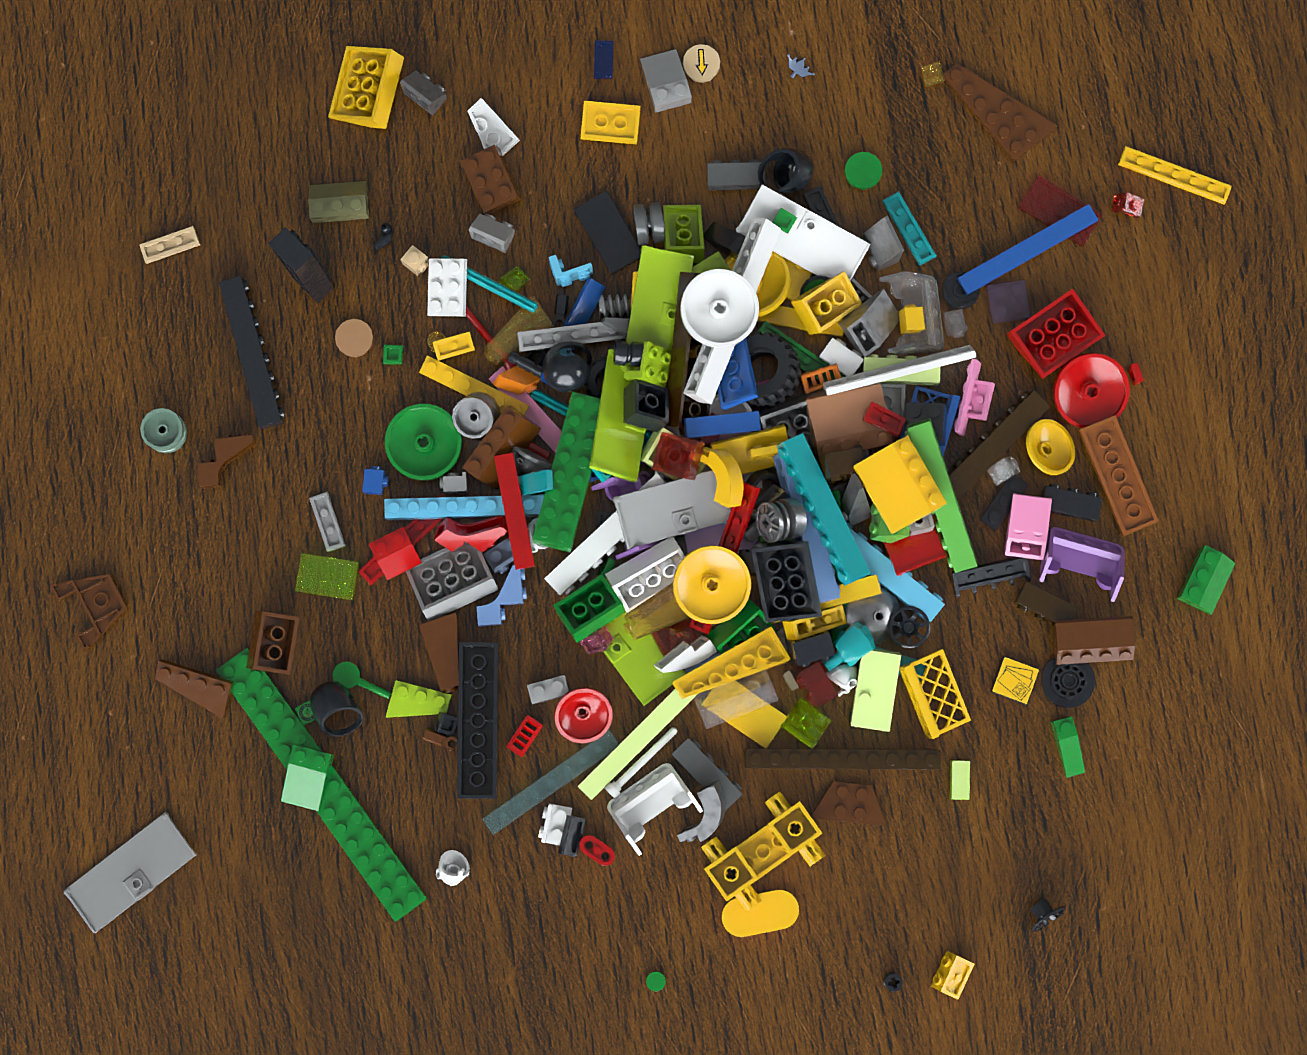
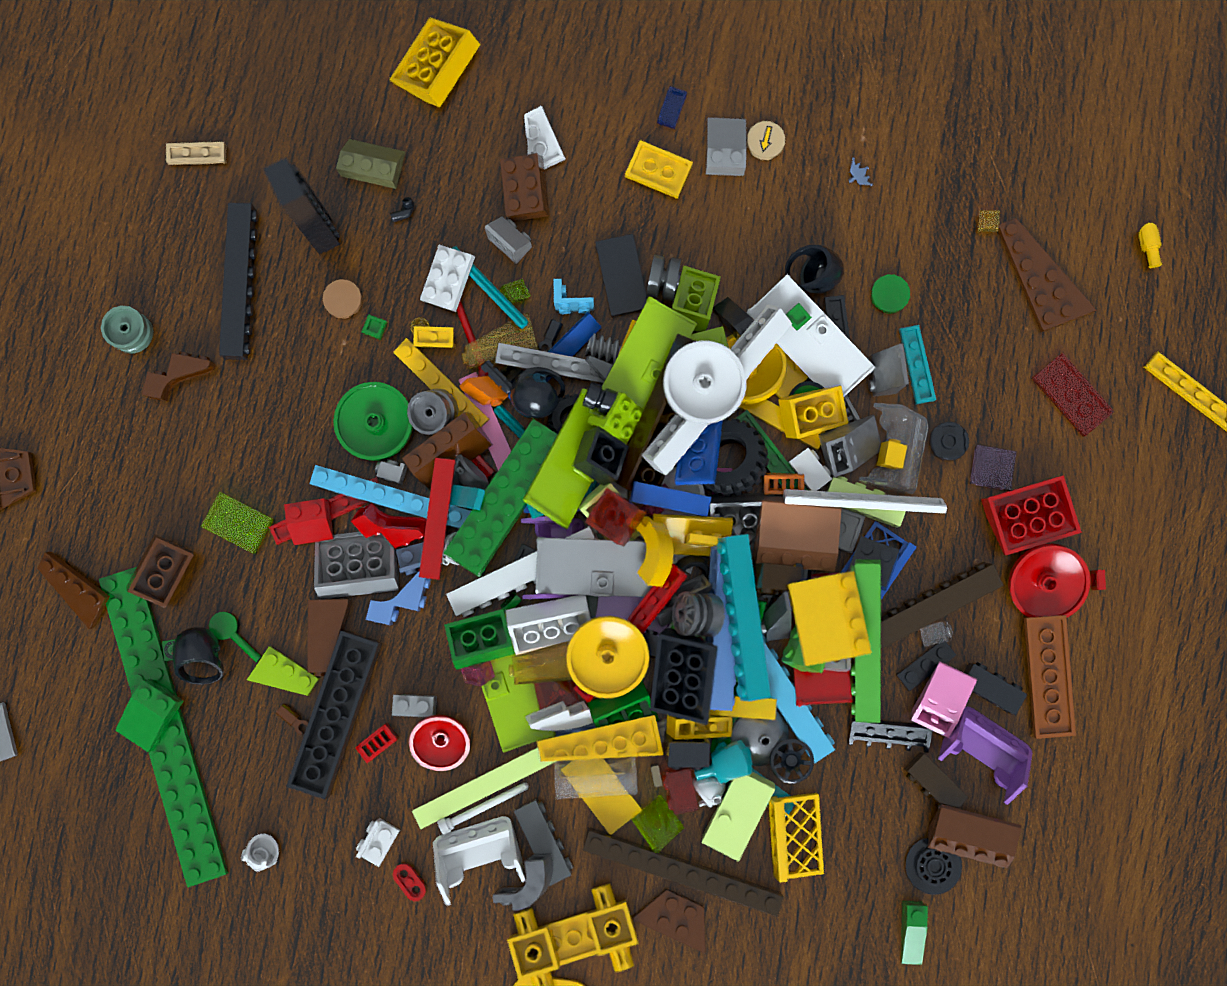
camera: 20 degrees right, 0 degrees up
(327, 522) = (256, 469): light grey tile -> none
(374, 481) = (314, 444): blue brick -> none
(415, 260) = (425, 242): tan brick -> none
(423, 92) = (487, 83): flat silver slope -> none
(446, 723) = (302, 706): black plate -> none
(550, 782) = (386, 798): clear light blue tile -> none
(571, 836) = (389, 859): black tile -> none
(733, 175) = (761, 258): dark grey brick -> none
(884, 419) = (833, 545): red plate -> none
(955, 323) = (933, 472): clear bracket -> none
(959, 780) = (793, 930): slope -> none
(975, 399) = (930, 553): bright pink bracket -> none
(1015, 680) = (880, 848): yellow tile -> none
(1027, 249) = (1029, 422): blue tile -> none
(1050, 447) = (990, 626): yellow dish -> none
(1088, 48) = (1150, 243): none -> yellow arm
(1128, 204) = (1142, 408): clear red bracket -> none
(1206, 579) = (1104, 808): green slope -> none

